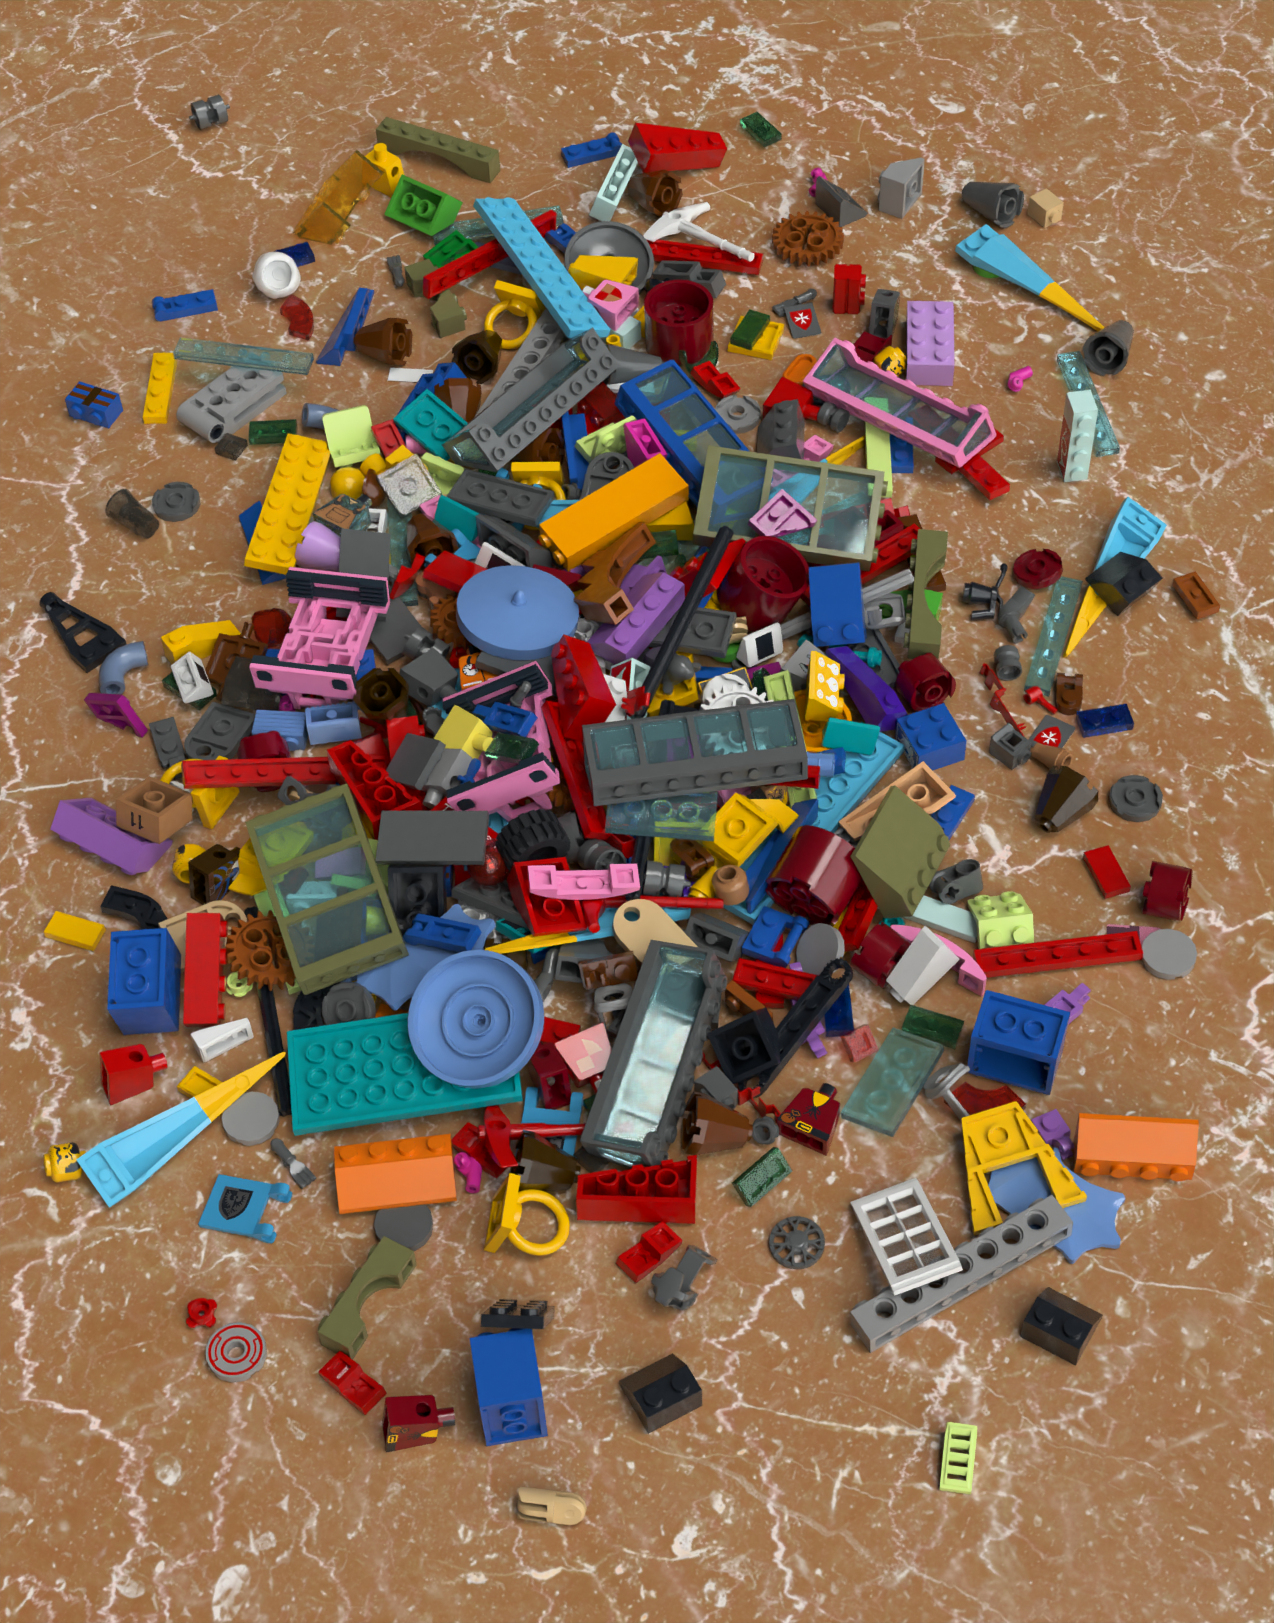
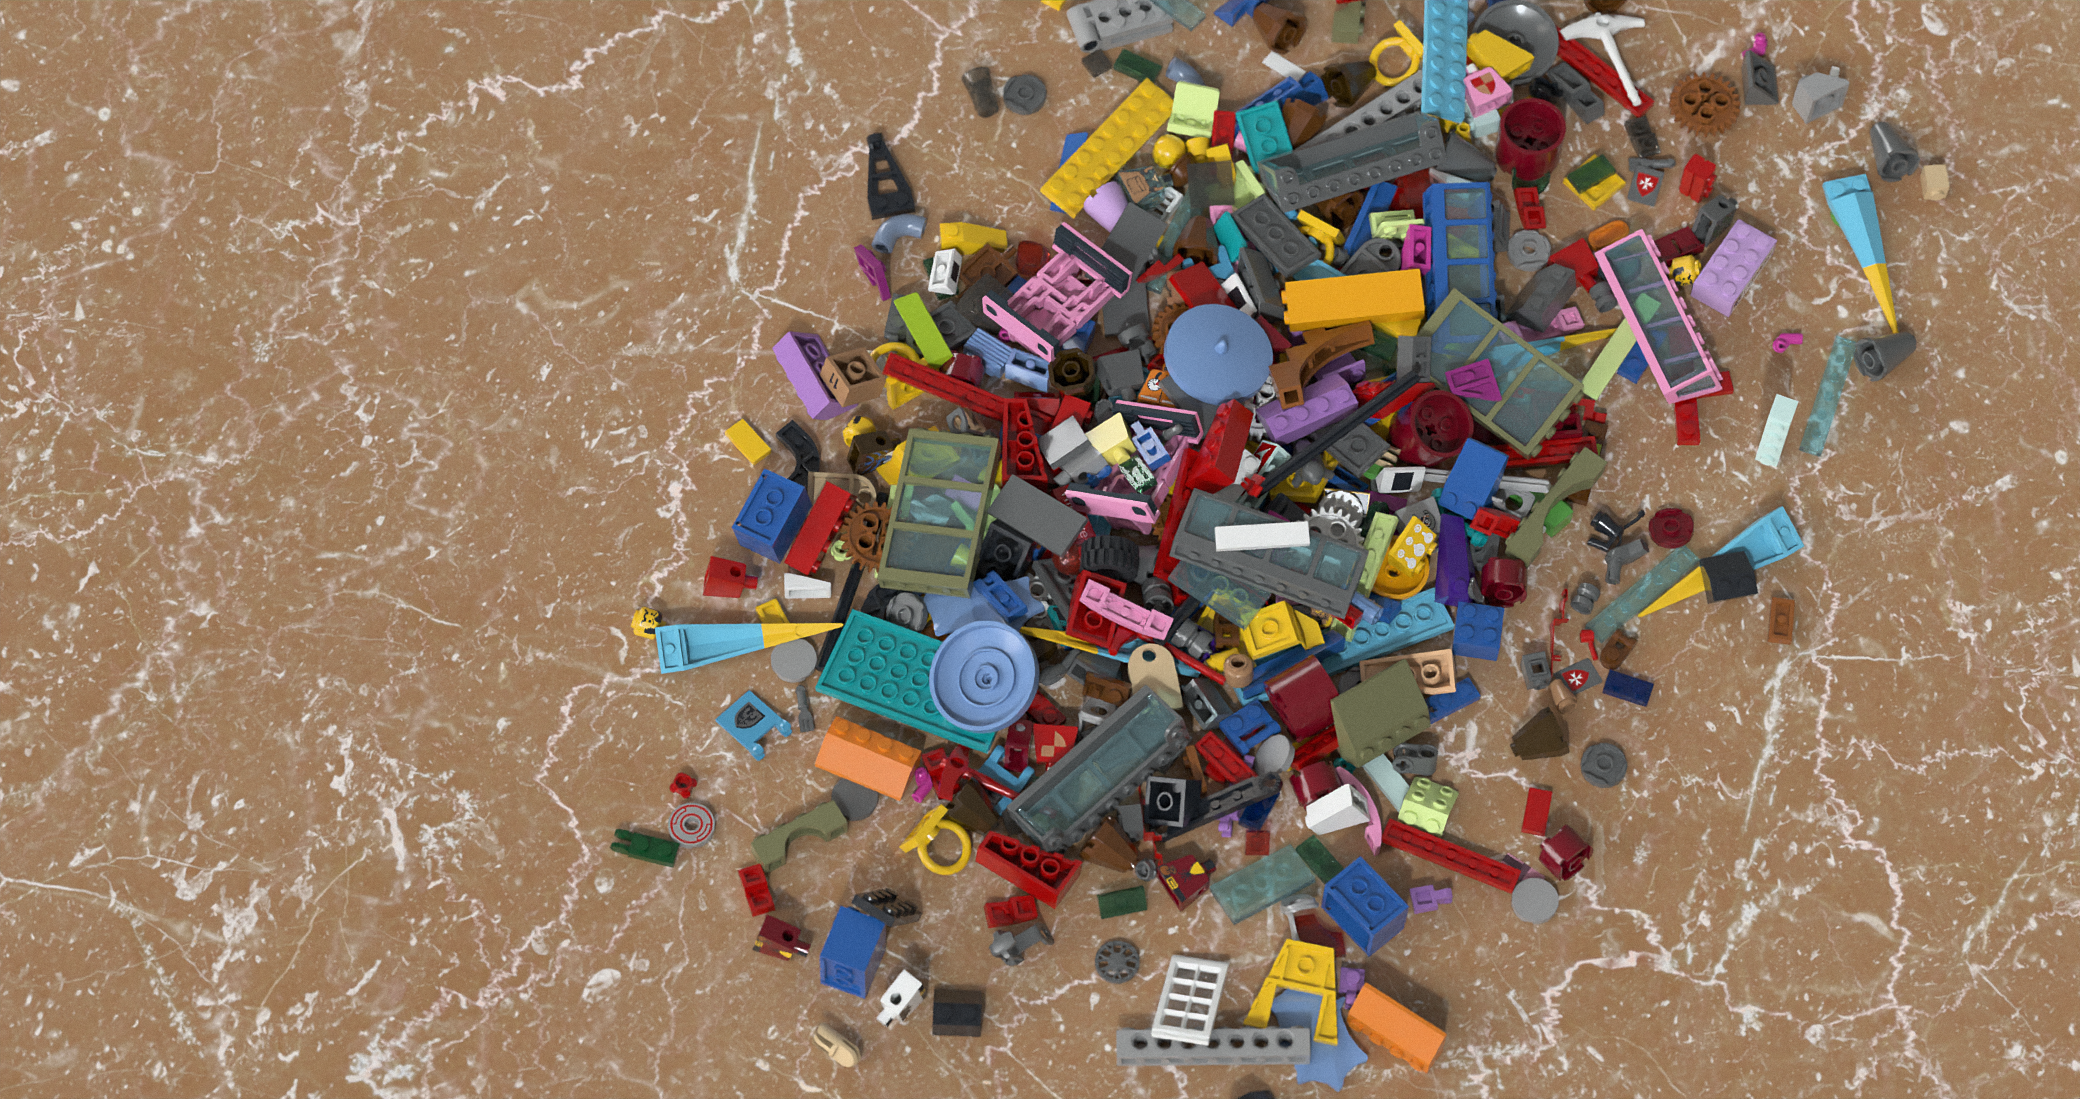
camera: 25 degrees right, 10 degrees up
(197, 1405) = (646, 848): none -> dark green hinge
(202, 733) = (923, 329): none -> lime slope
(595, 1400) = (905, 991): none -> white torso
(680, 735) = (1262, 536): none -> white tile
(705, 521) = (1415, 355): none -> dark grey hinge
(770, 287) = (1641, 137): none -> clear smoke slope
(850, 735) = (1411, 597): teal slope -> none
(881, 633) = (1494, 521): none -> red slope
(907, 704) = (1474, 592): none -> dark grey piece

